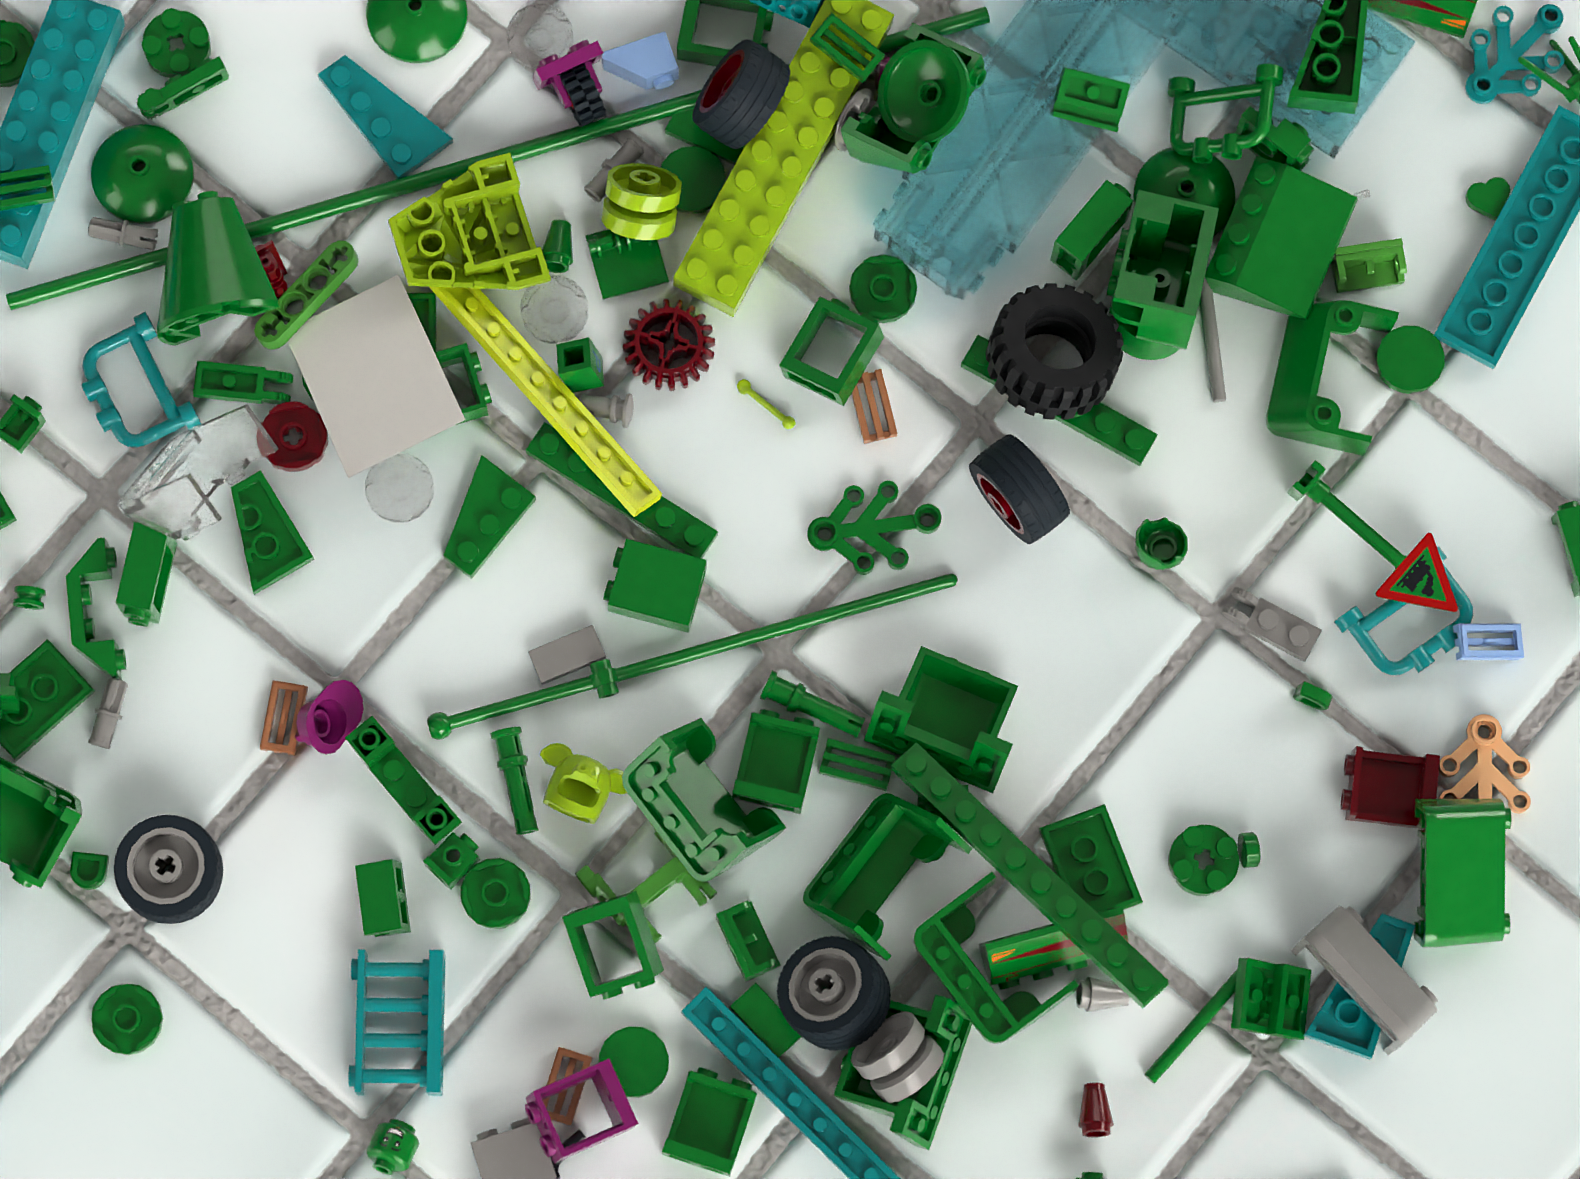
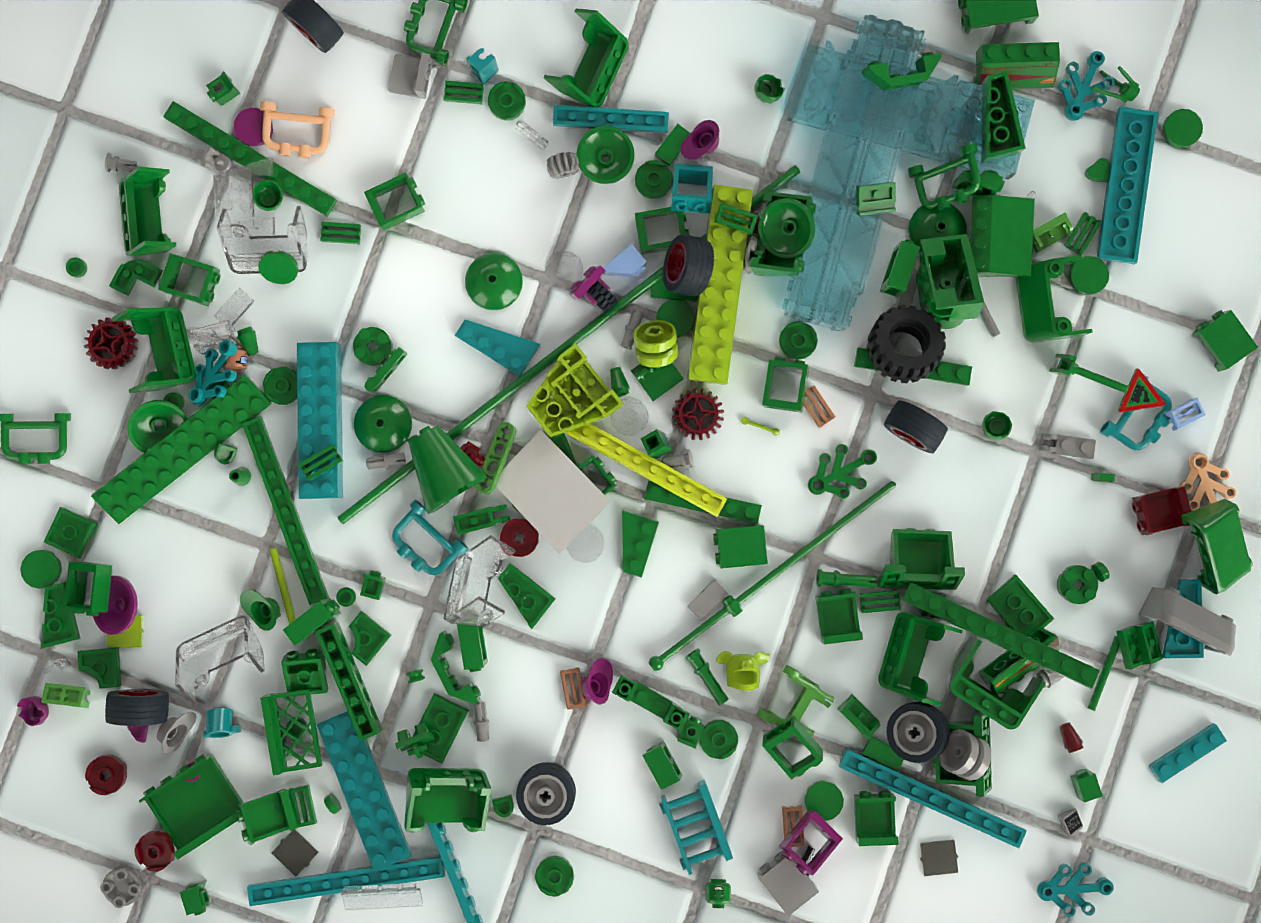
camera: 15 degrees left, 10 degrees up
(693, 806) = (809, 660): green windscreen -> none
(1445, 270) = (1091, 220): none -> green tile

